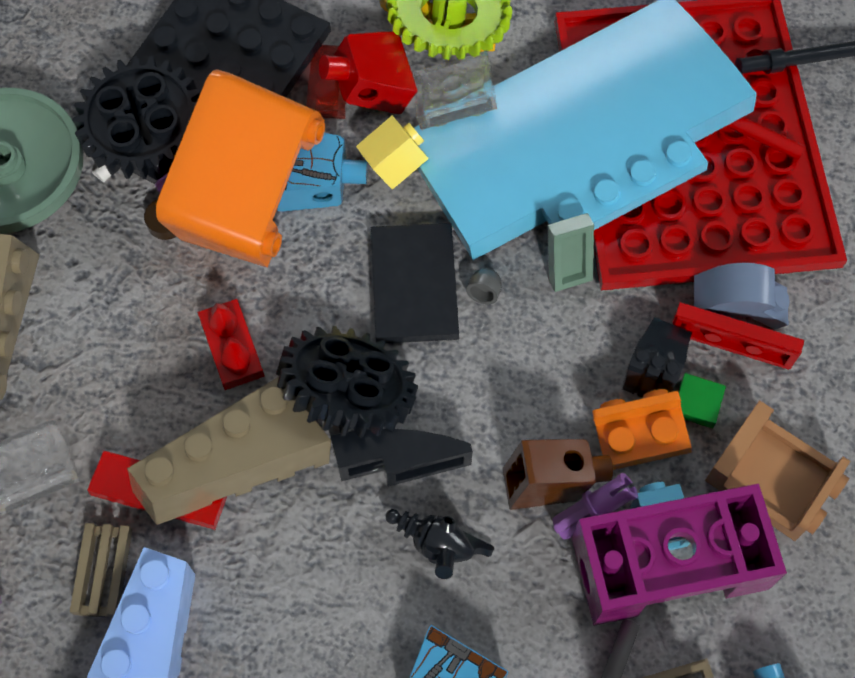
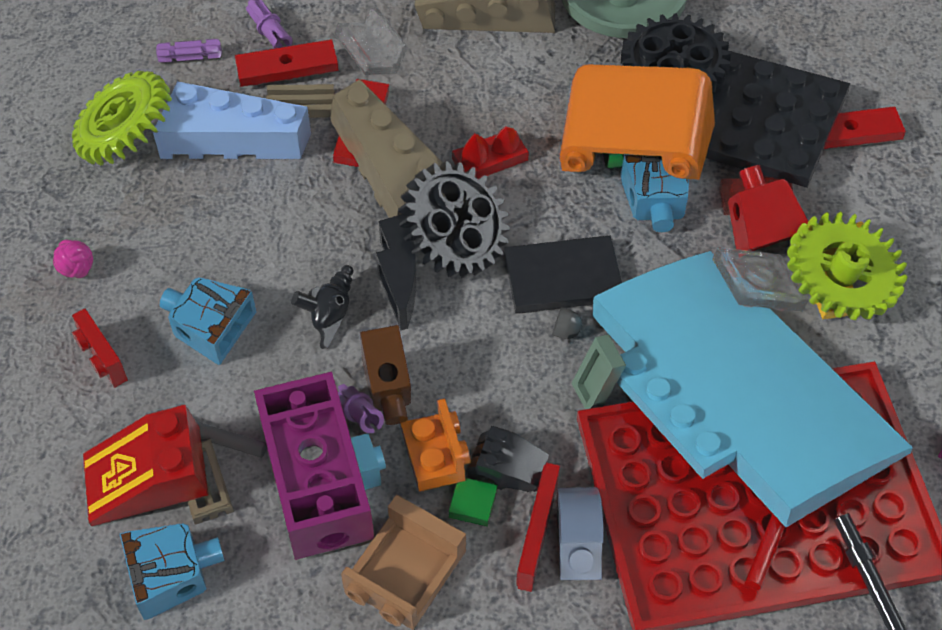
camera: 85 degrees right, 10 degrees down
(34, 557) = (286, 63): none -> red tile
(393, 151) = (682, 237): light yellow brick -> none

